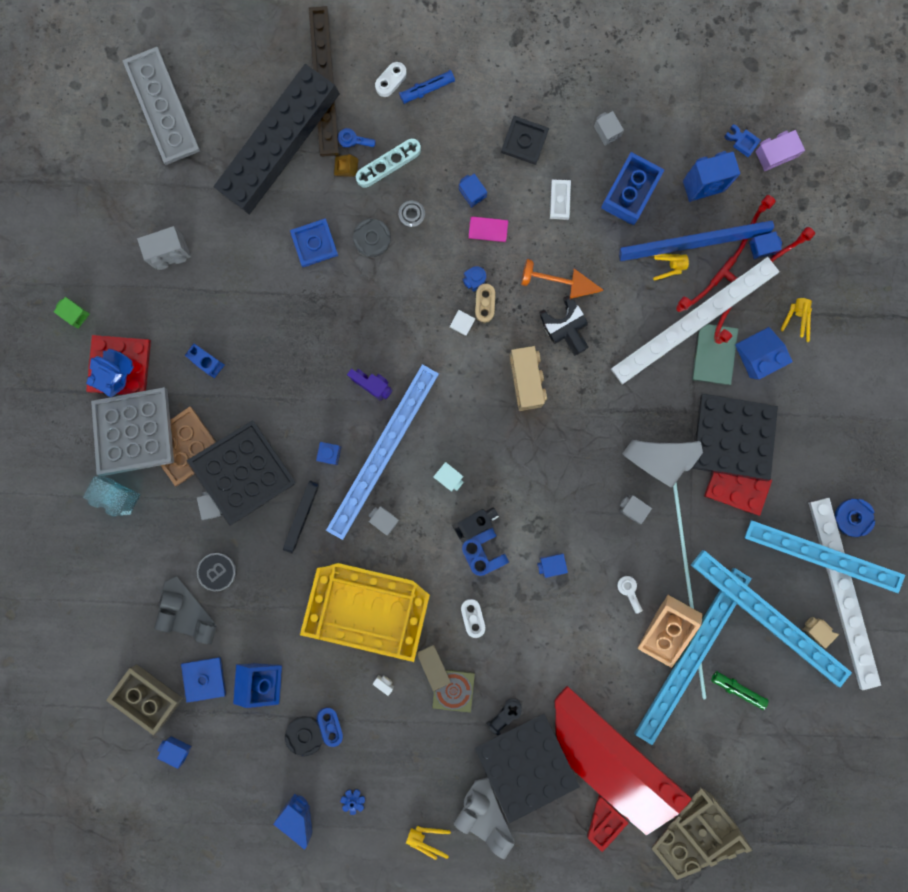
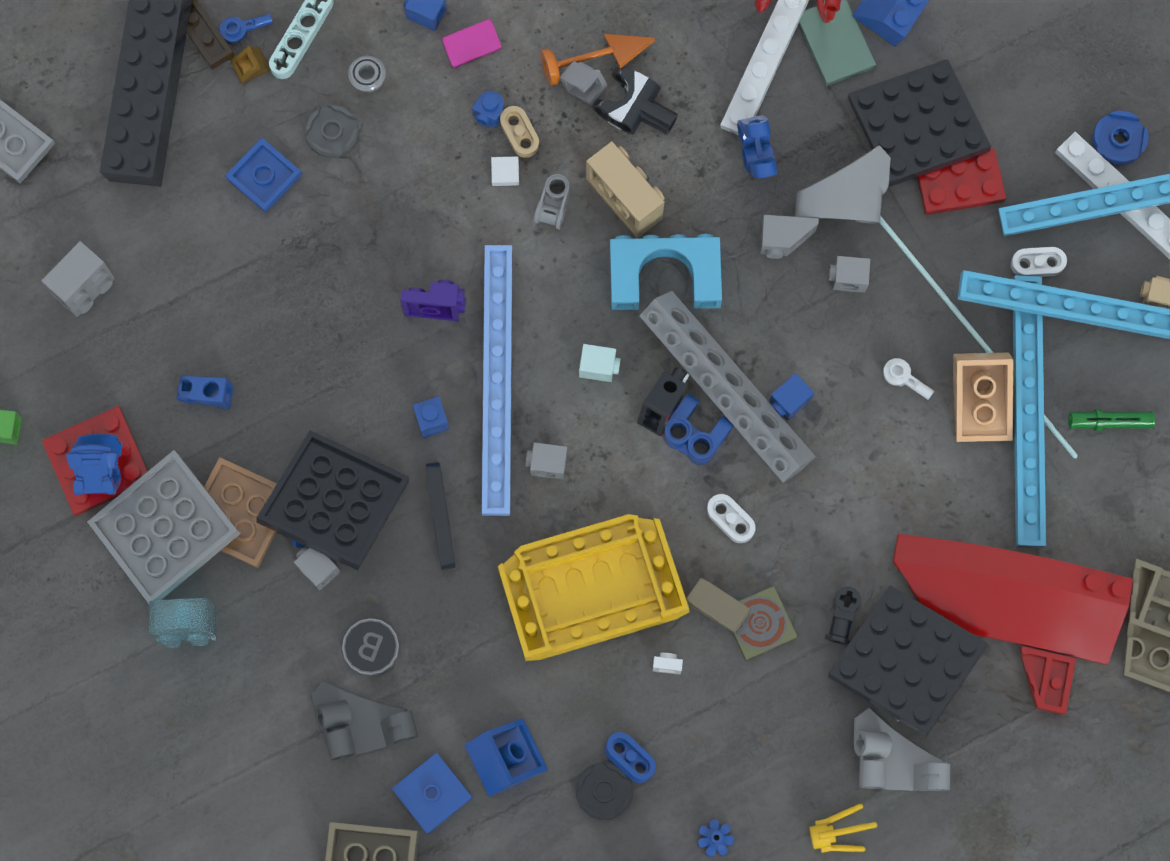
camera: 30 degrees left, 10 degrees down
(478, 361) = (552, 206): none -> light grey piece
(517, 537) = (727, 386): none -> light grey brick
(542, 294) = (583, 82): none -> light grey window
(549, 444) = (698, 254): none -> medium azure arch
(608, 461) = (784, 234): none -> light grey slope
(624, 398) = (756, 146): none -> blue piece
(754, 567) = (1037, 261): none -> white plate

